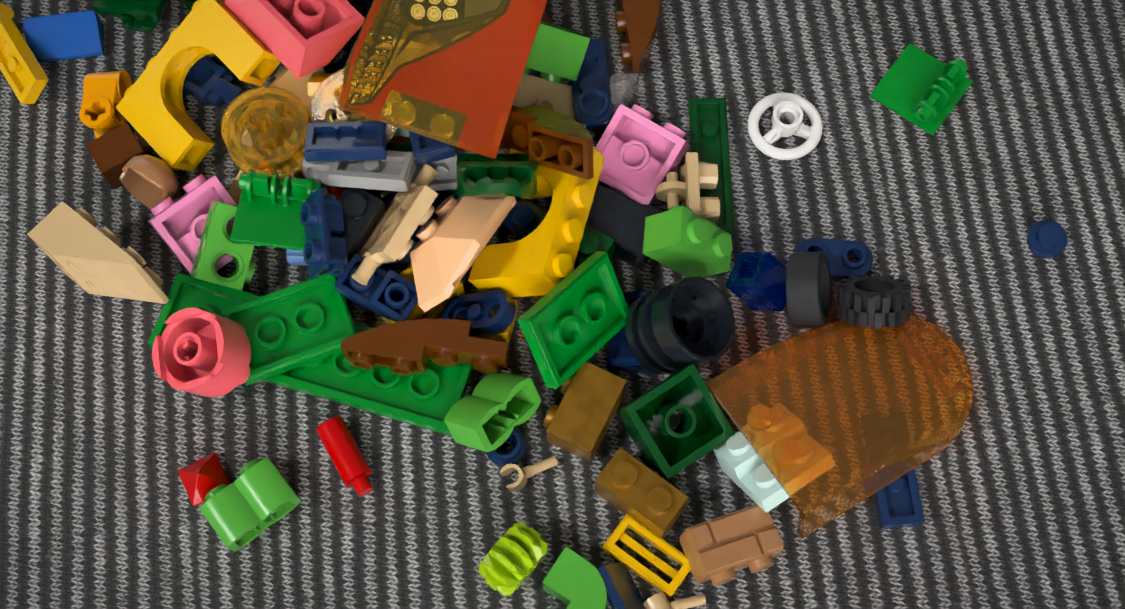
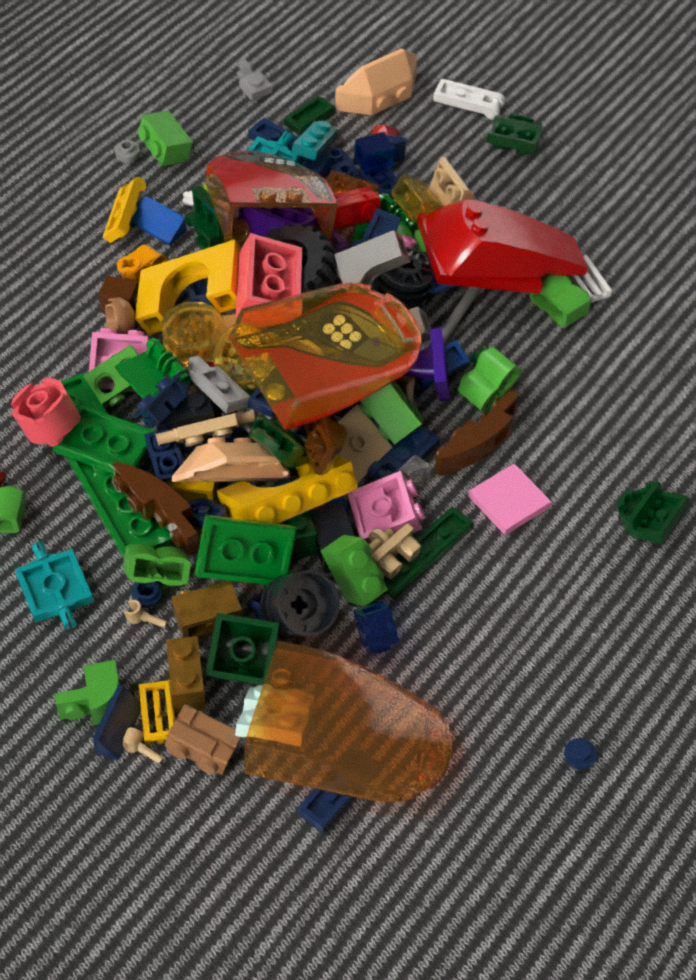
camera: 40 degrees right, 15 degrees down
(94, 256) = (49, 328): tan slope -> none
(345, 455) = (64, 526): red cylinder -> none
(346, 141) = (220, 362): dark blue plate -> none
(406, 525) = (53, 585): none -> teal plate
(513, 558) = (83, 643): lime gear -> none
(593, 107) = (386, 462): dark blue plate -> none
(728, 46) = (509, 499): none -> bright pink tile
(785, 108) = (493, 563): white piece -> none
(808, 289) = (385, 640): black tyre -> none
(837, 255) = (434, 656): dark blue plate -> none
(873, 301) = (427, 689): black tyre -> none
(922, 88) = (600, 613): green hinge -> none

